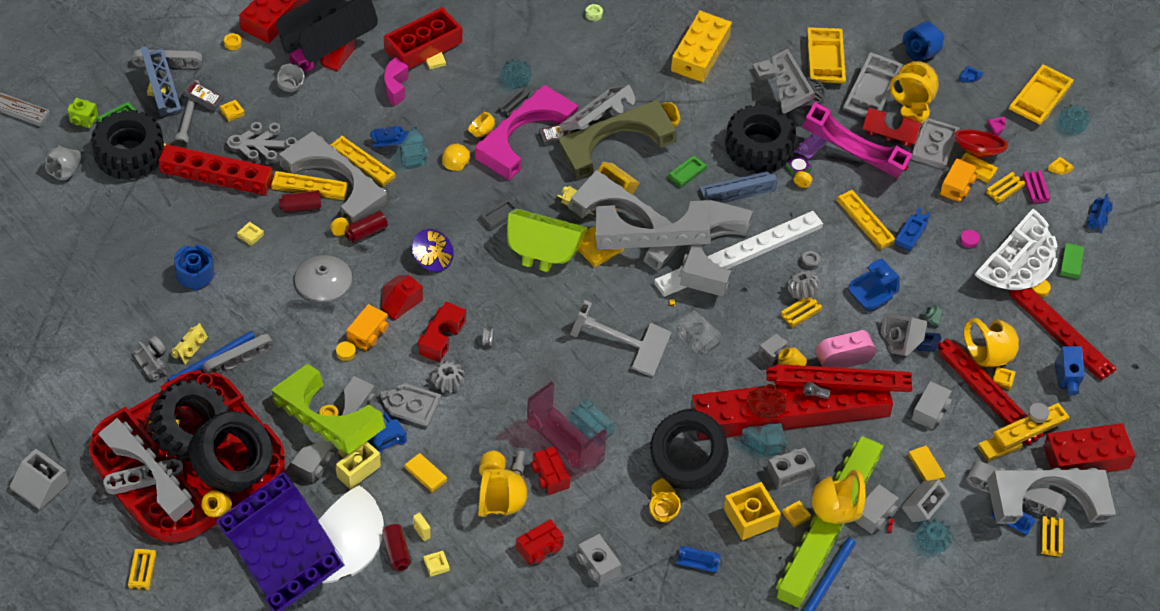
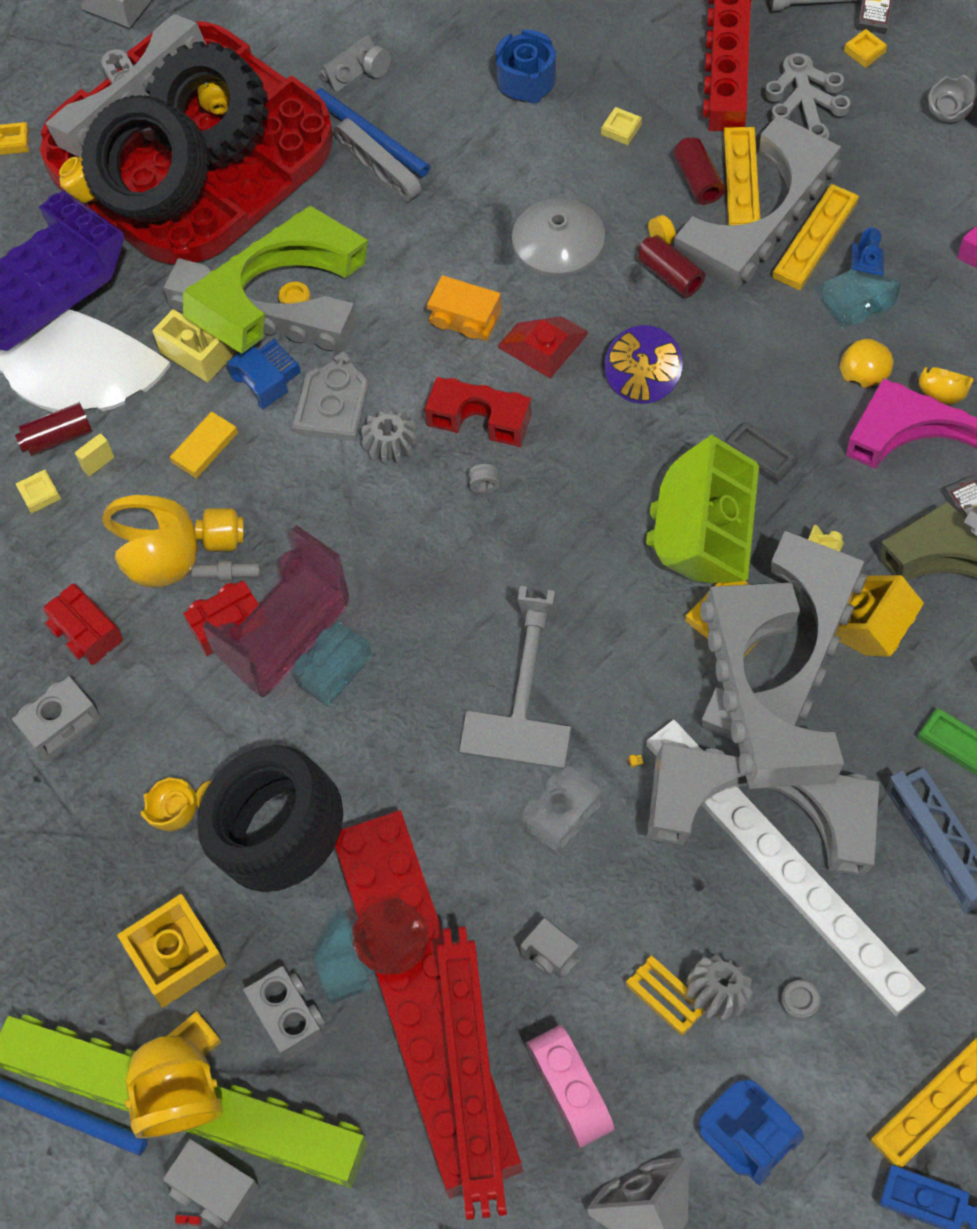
camera: 90 degrees right, 10 degrees up
(190, 344) = (389, 100): light yellow hinge -> none
(345, 351) = (418, 292): yellow tile -> none
(698, 559) = (79, 878): blue hinge -> none
(791, 356) = (525, 985): yellow head -> none
(814, 390) = (435, 1026): flat silver arm -> none

